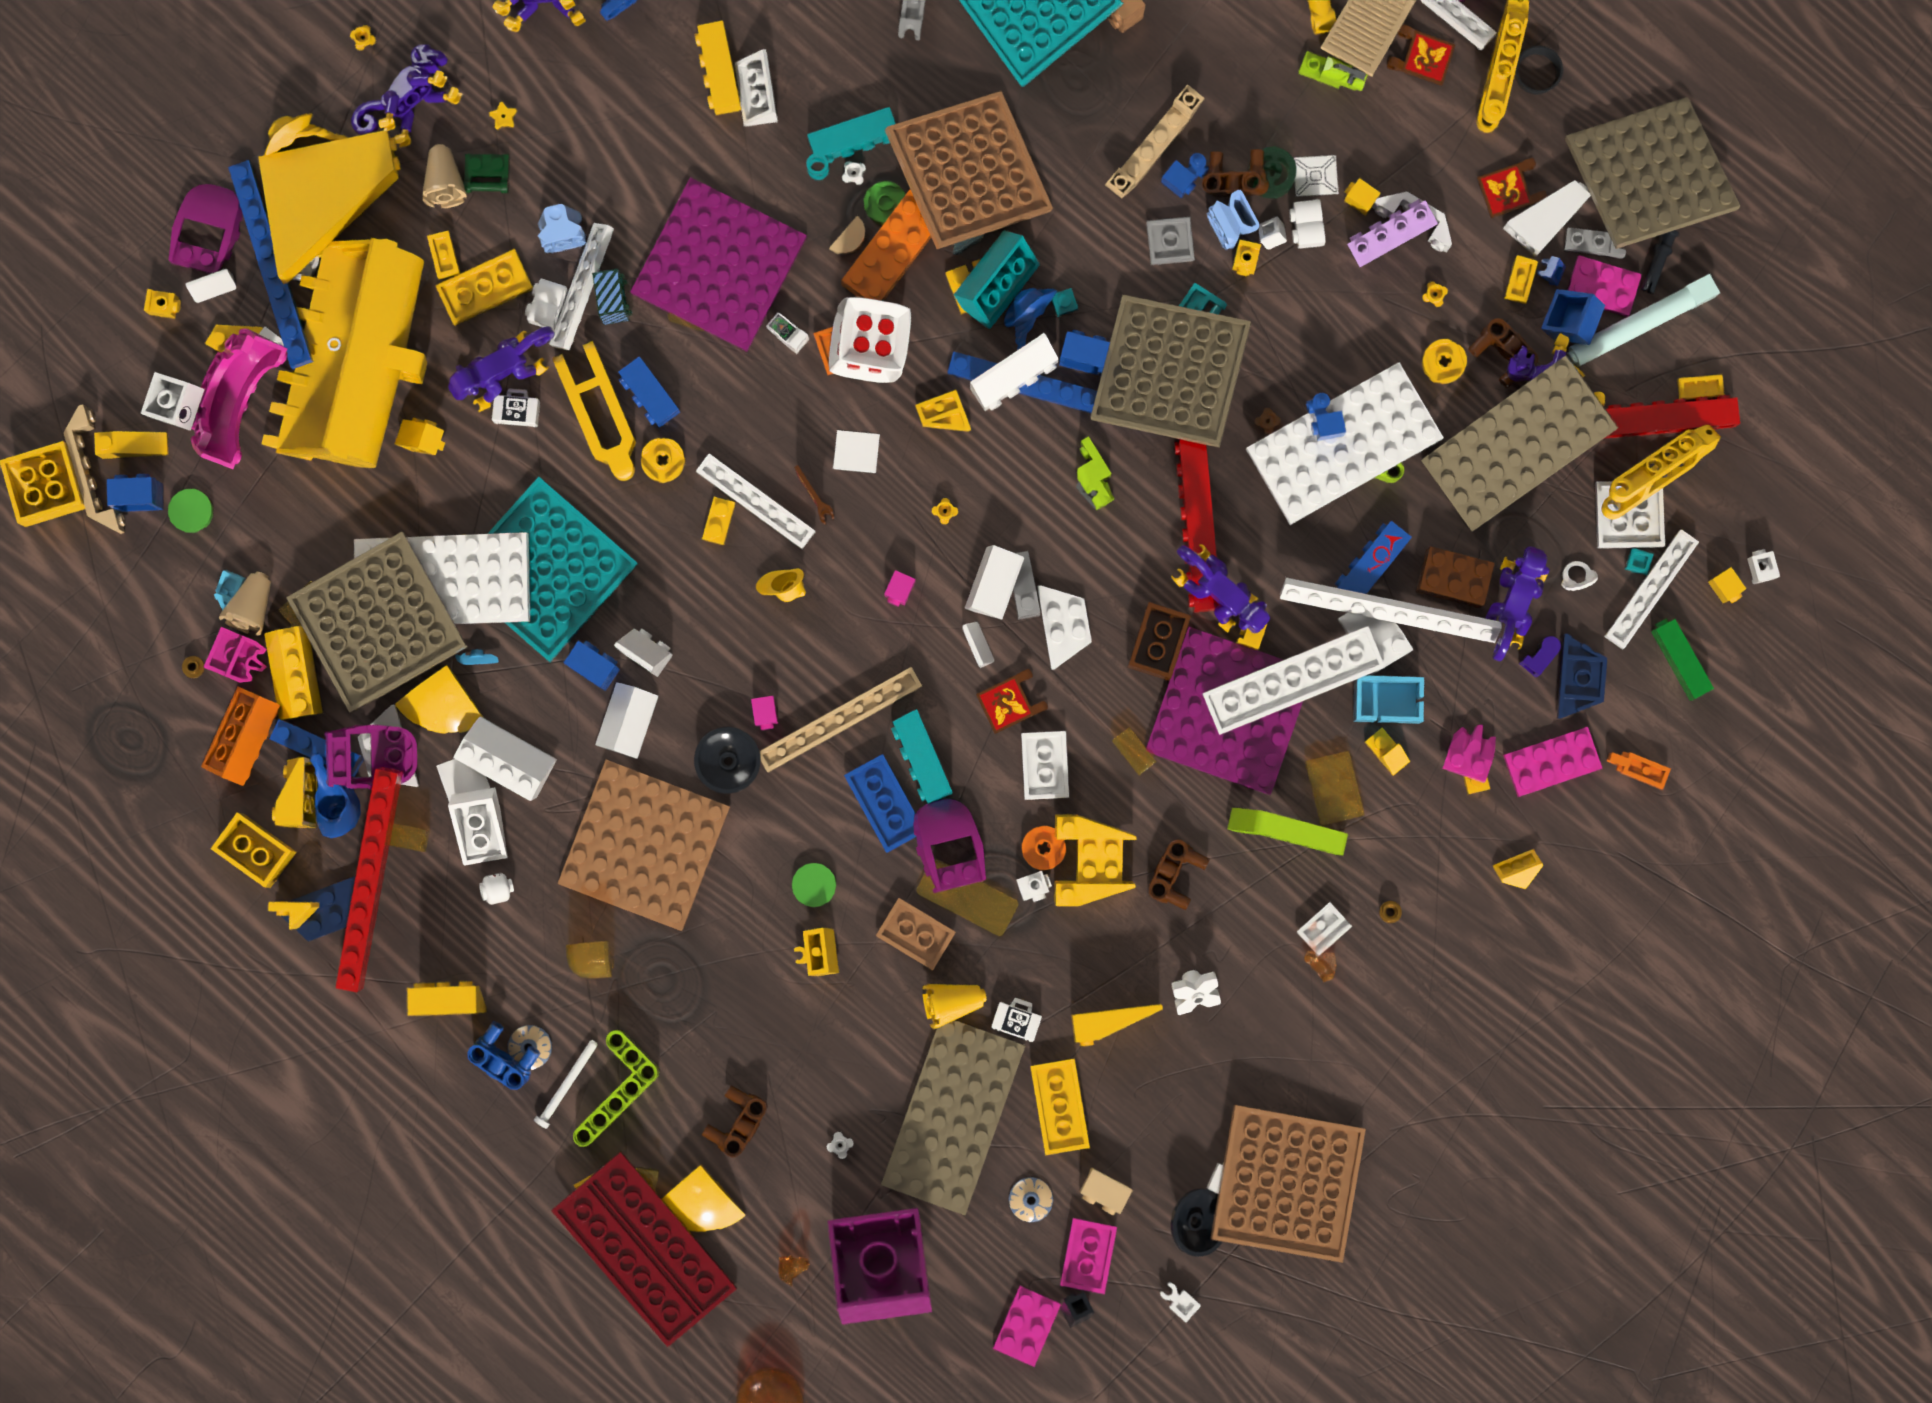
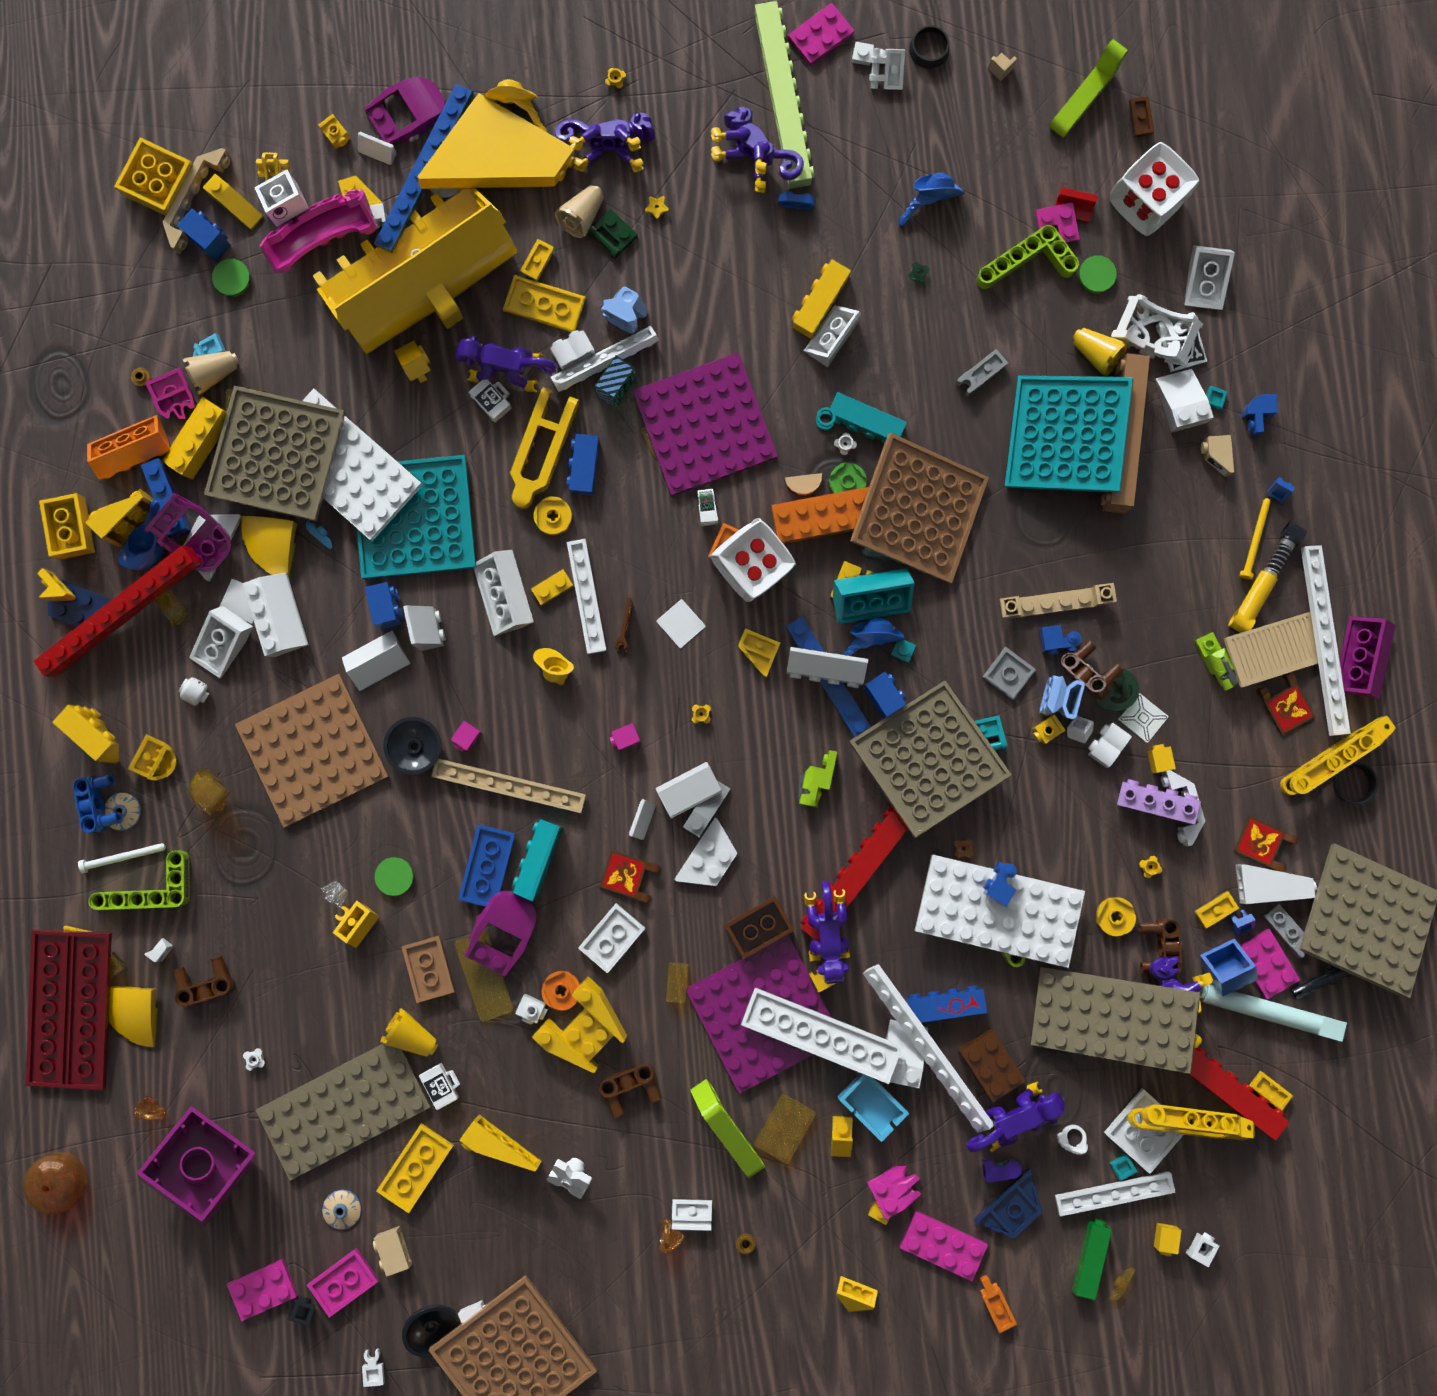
camera: 45 degrees right, 0 degrees up
(136, 379) = (274, 165): none -> yellow piece
(516, 976) = (153, 759): none -> yellow slope
(674, 1130) = (160, 951): none -> white slope
(681, 563) = (503, 592): none -> white slope
(778, 944) = (335, 893): none -> clear piece
(1724, 657) = (1121, 1283): none -> clear yellow piece

